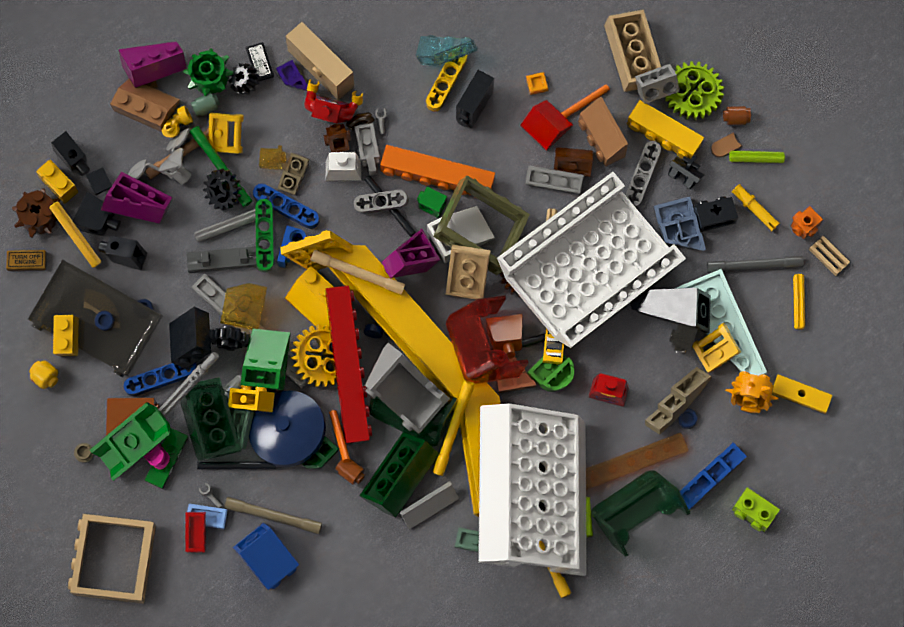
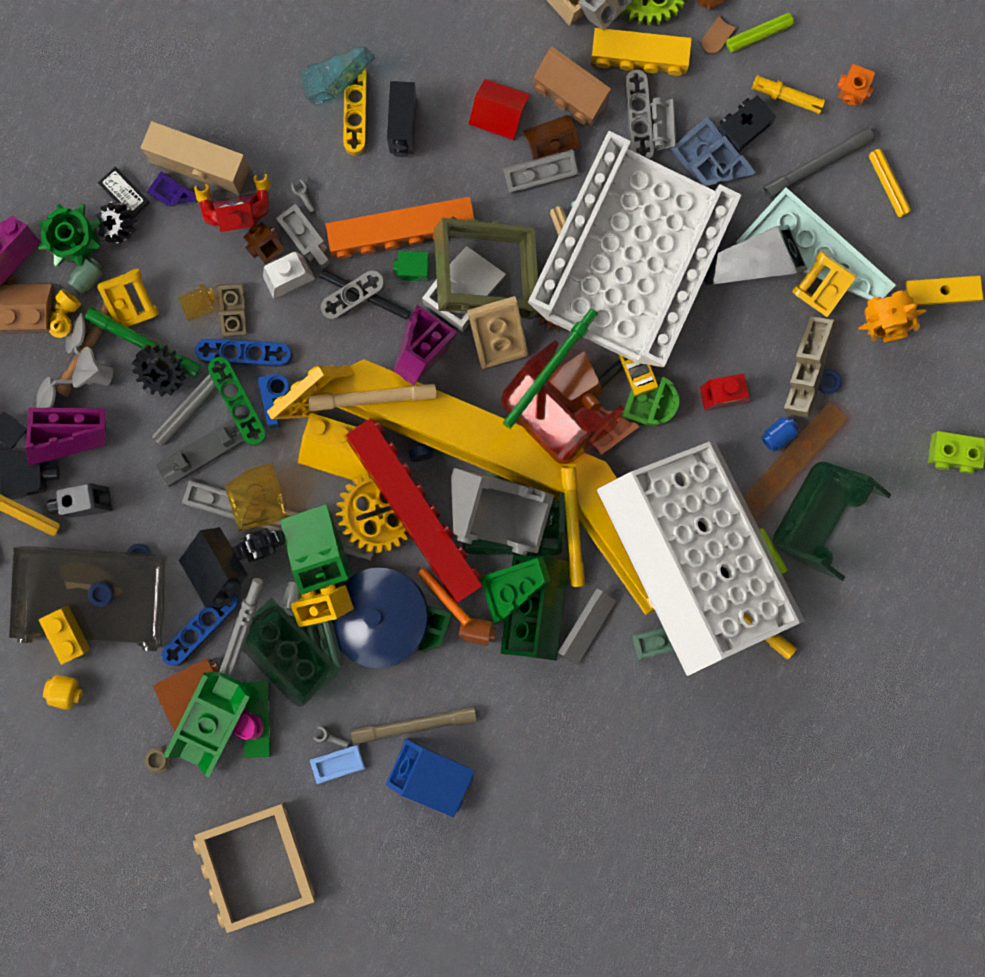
camera: 25 degrees left, 10 degrees up
(195, 531) = (334, 789): red tile -> none
(234, 465) = (341, 688): black bar -> none
(359, 118) = (276, 205): dark brown arm -> none
(391, 450) = (513, 587): none -> green wing
(522, 295) = (578, 331): none -> green bar
(537, 83) = (463, 63): light orange tile -> none
(585, 101) = (530, 58): orange bar -> none
(633, 437) = (780, 434): none -> blue brick
(655, 189) = (663, 124): none -> light grey hinge
(683, 338) = (783, 291): clear smoke brick -> none
(688, 168) = (691, 84): black hips -> none
(712, 475) = (889, 434): blue slope -> none
(838, 254) = (895, 110): tan tile -> none

